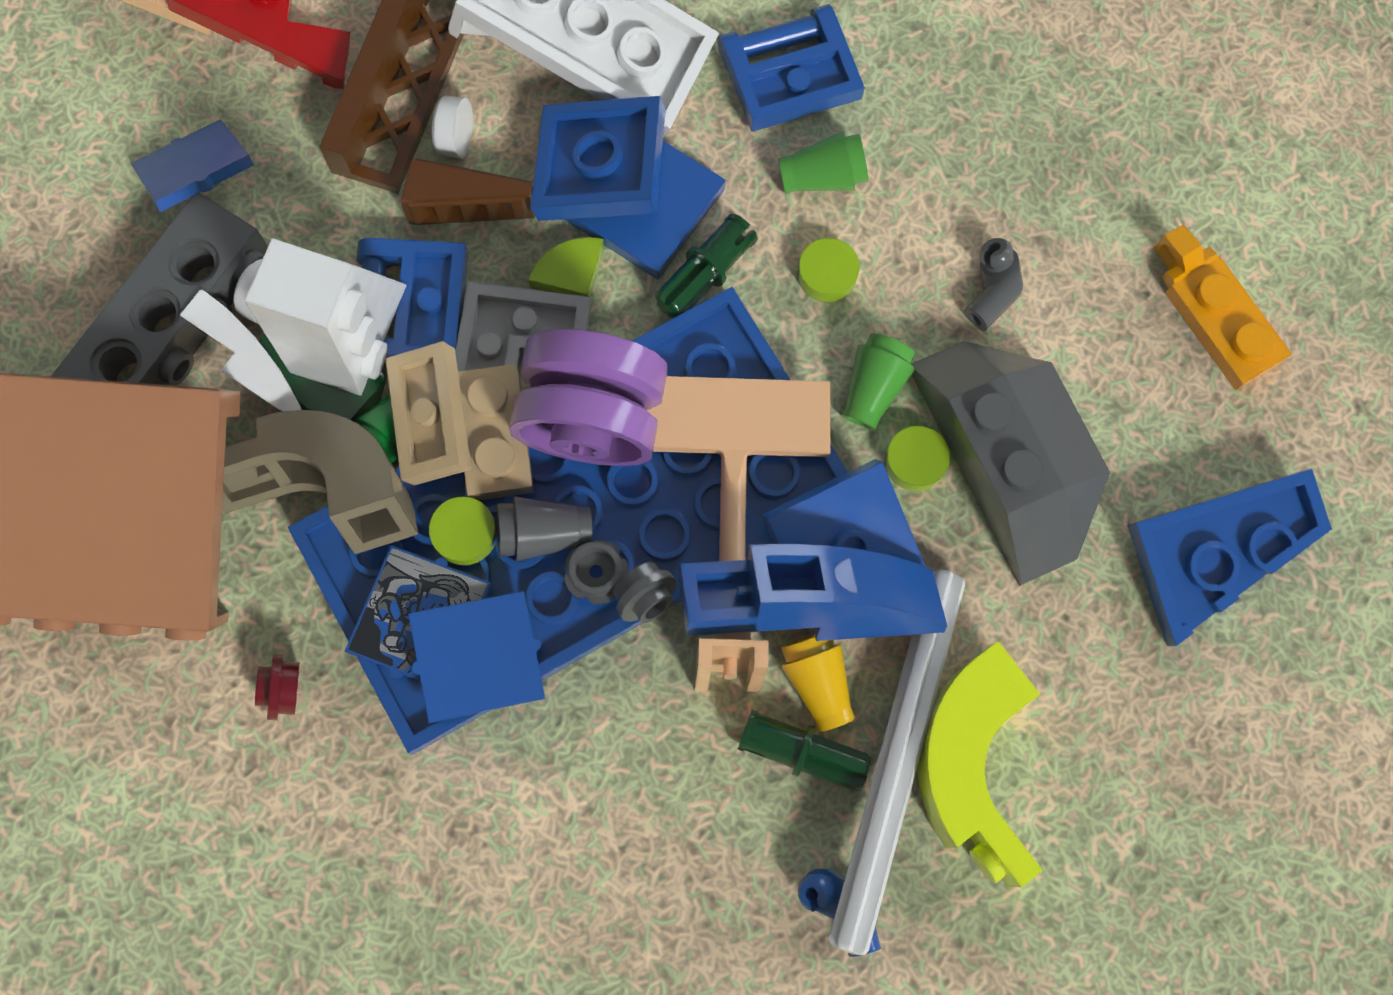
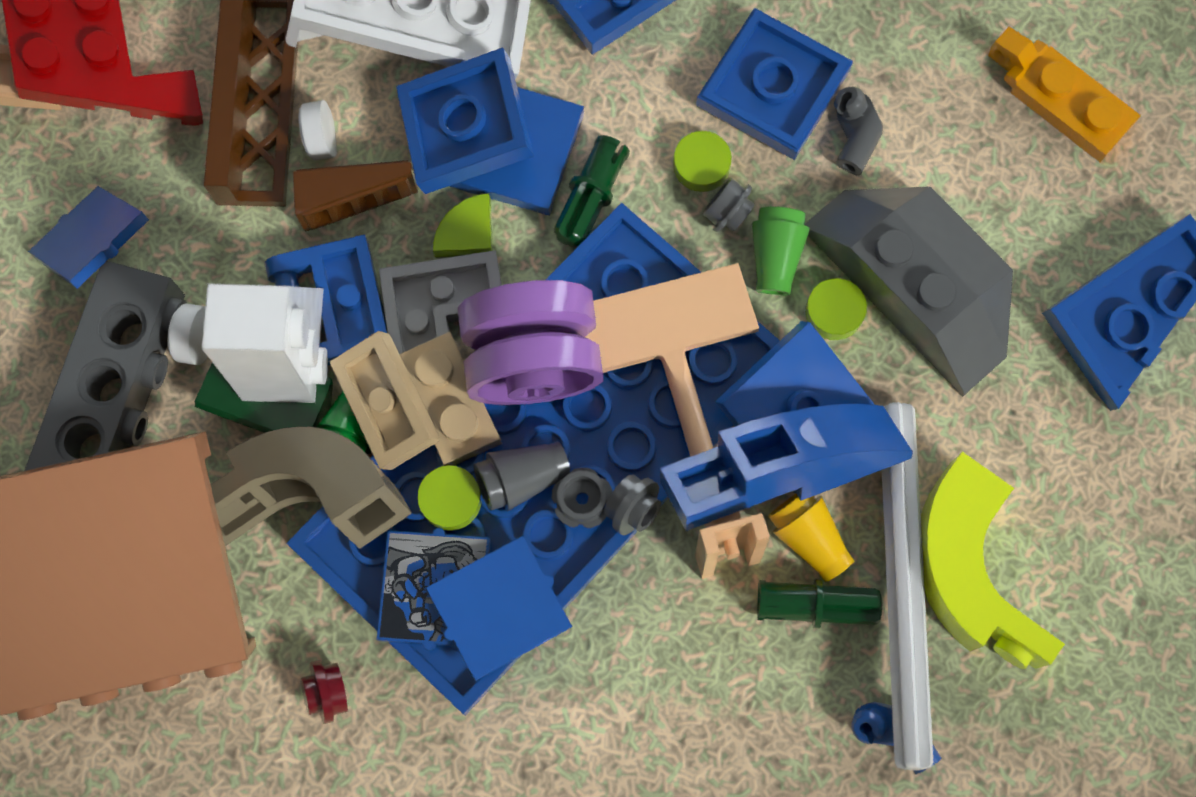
camera: 10 degrees left, 0 degrees up
(250, 362) = (203, 402): white sticker -> none
(826, 166) = (671, 66): bright green cone -> none
(841, 322) = (729, 206): none -> dark grey plate
(925, 213) = (774, 83): none -> blue plate

